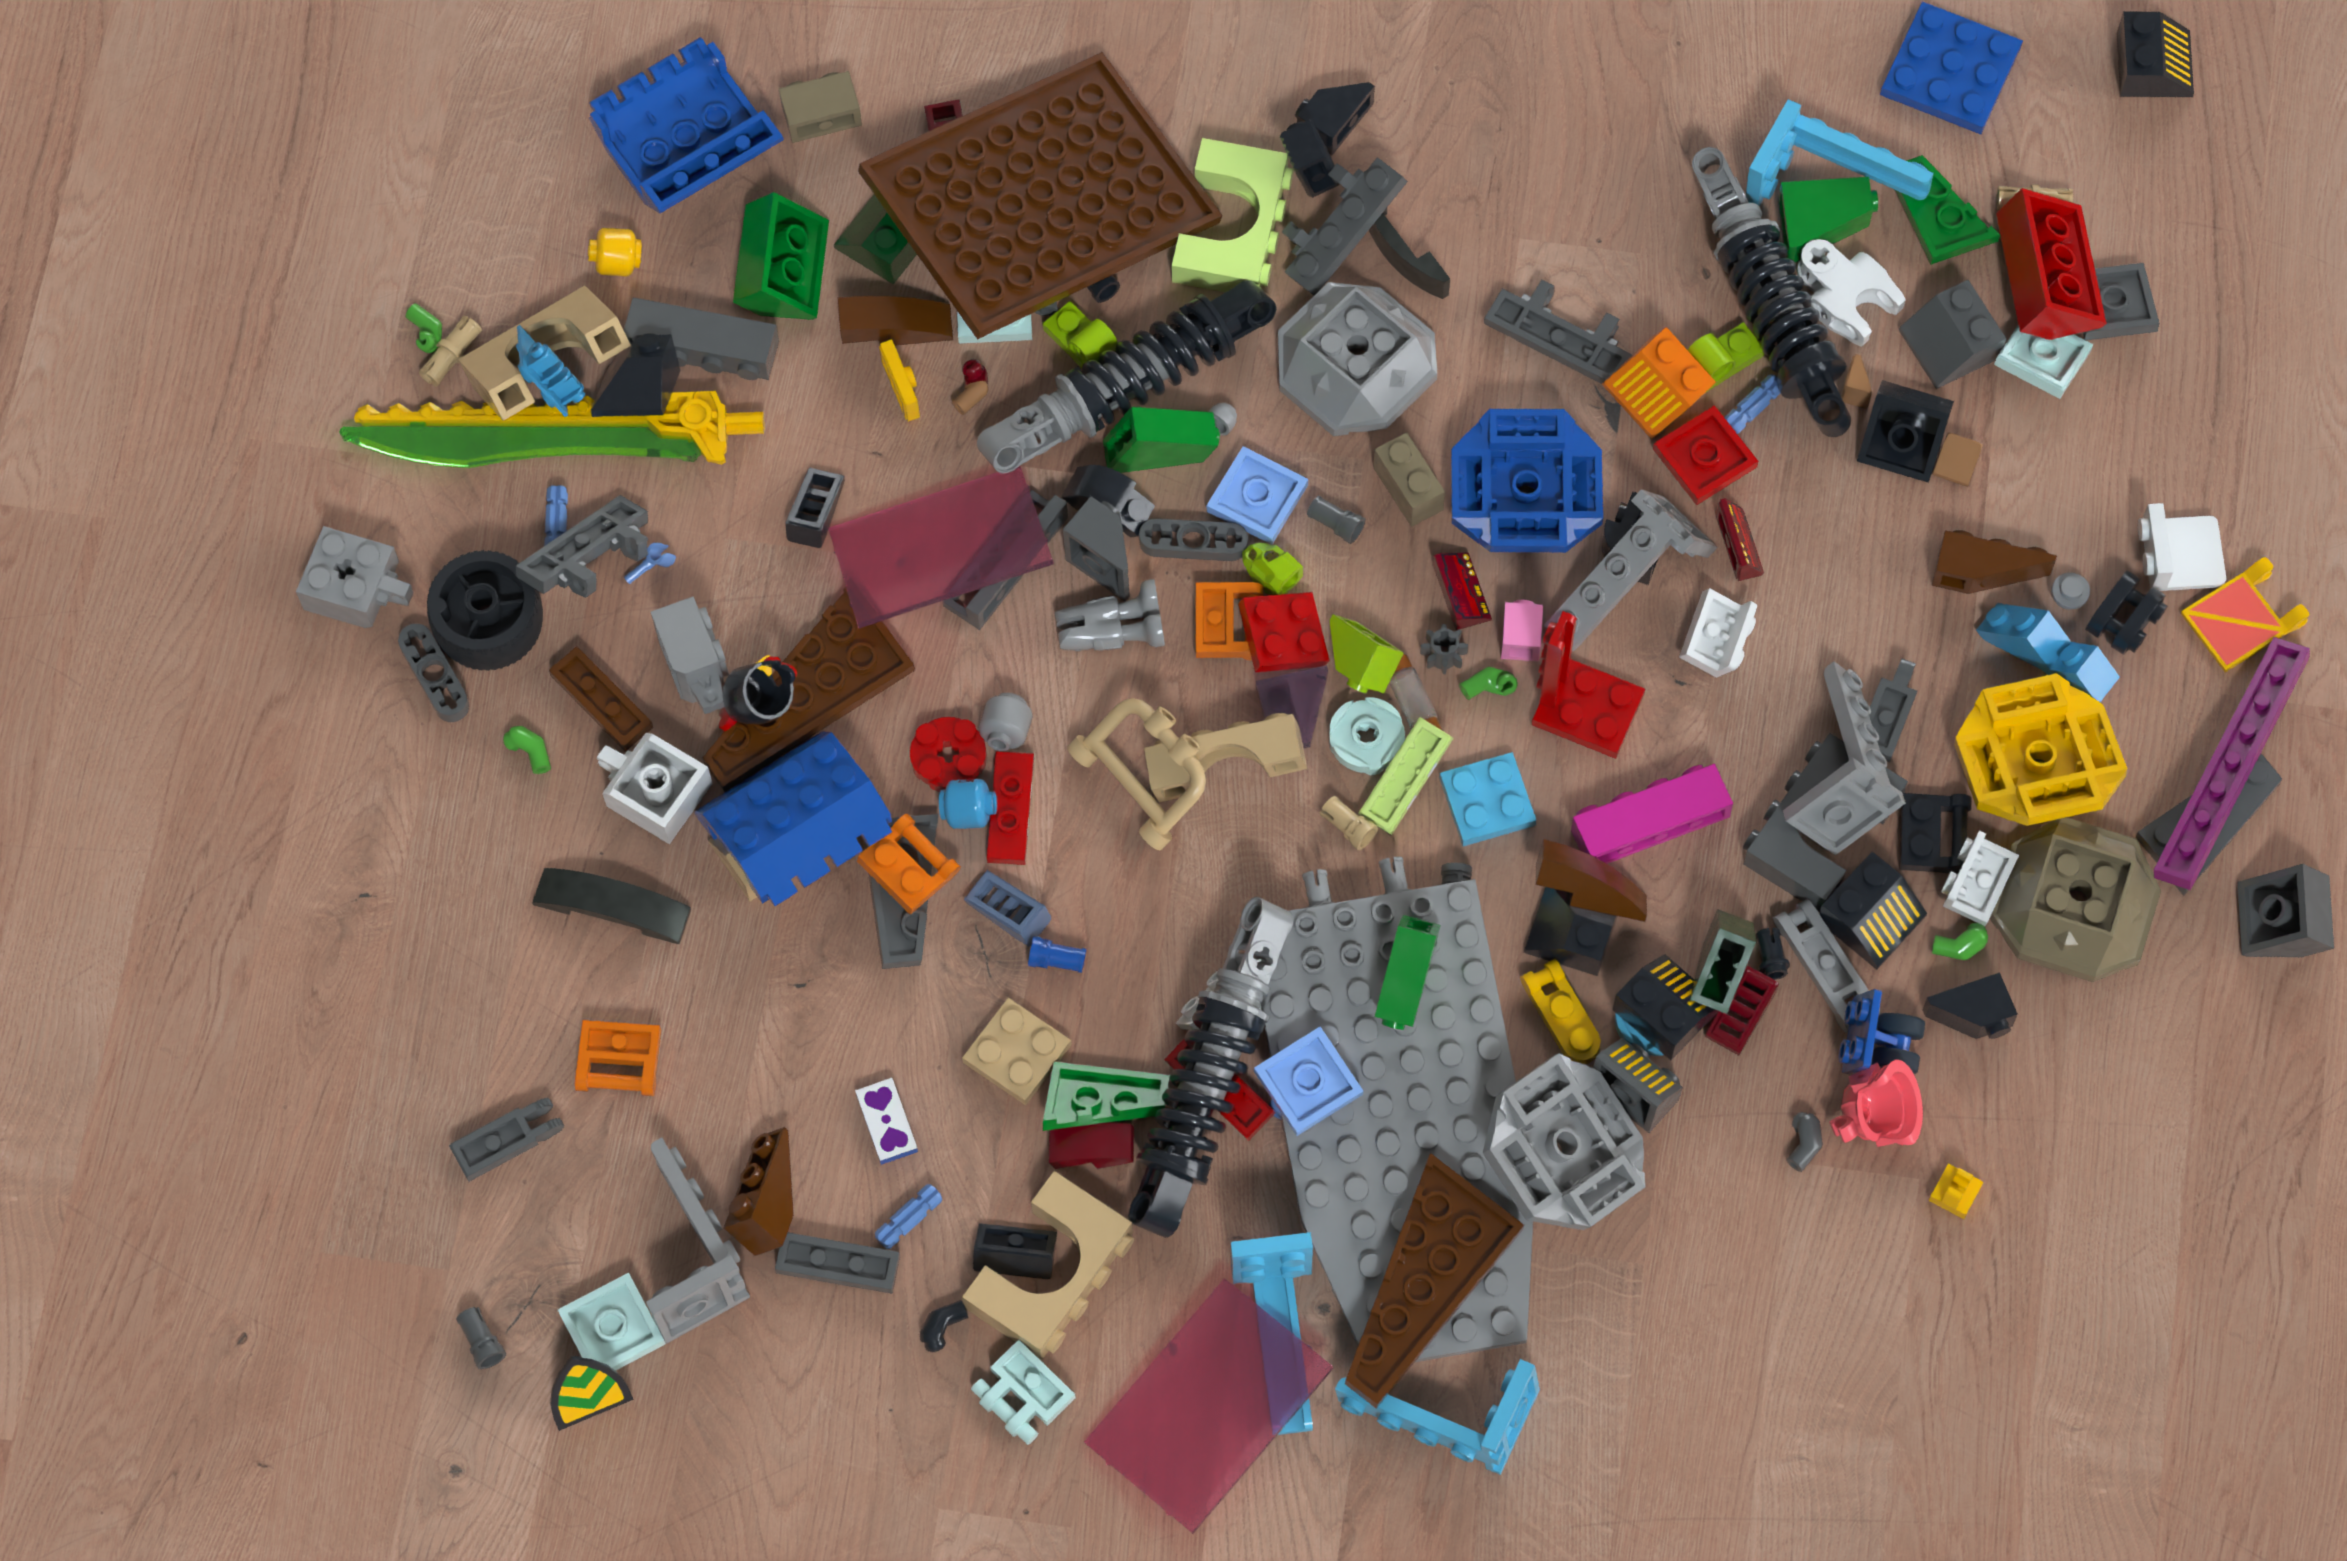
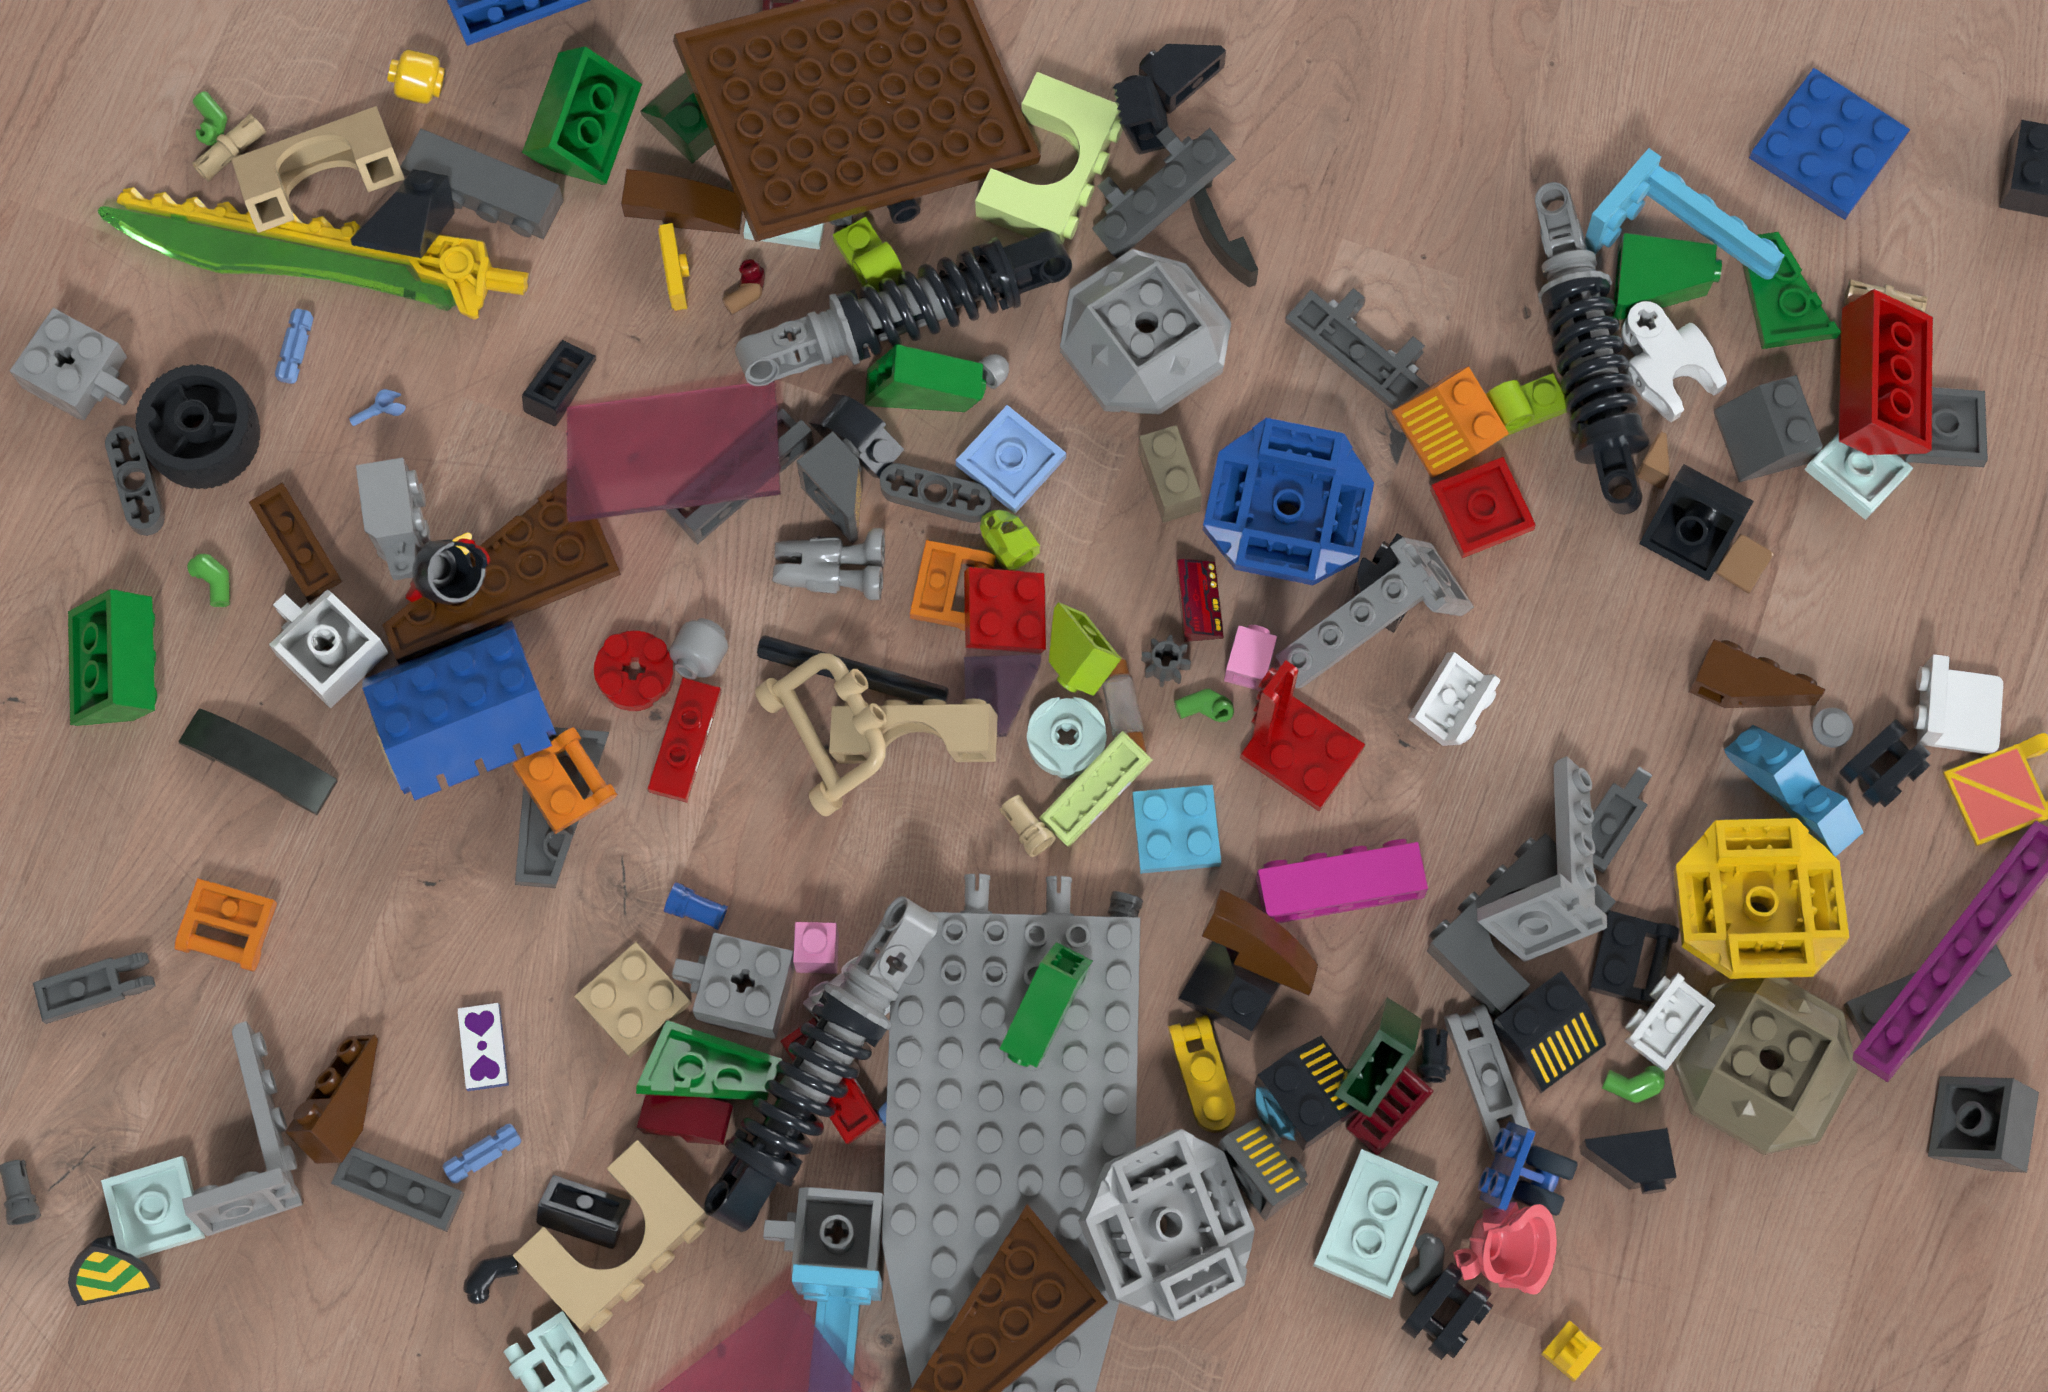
camera: 10 degrees right, 5 degrees up
(451, 838) = (111, 659): none -> green slope
(548, 373) = (312, 191): dark azure hinge -> none
(566, 557) = (287, 389): dark grey hinge -> none
(967, 803) = (639, 728): dark azure head -> none
(1027, 922) = (676, 863): sand blue slope -> none
(1096, 1010) = (729, 964): none -> light grey hinge
(1178, 968) = (816, 947): none -> bright pink brick
(1186, 718) = (878, 678): none -> black axle
(1243, 1198) = (819, 1215): none -> light grey hinge
(1308, 1081) = (918, 1101): light blue plate -> none
(1344, 523) = (1094, 506): dark grey pin -> none
(1738, 540) = (1497, 605): dark red slope -> none
(1752, 1113) = (1376, 1224): none -> light aqua plate
(1753, 403) = (1544, 462): medium blue axle -> none
(1857, 1169) = (1448, 1337): none -> black brick

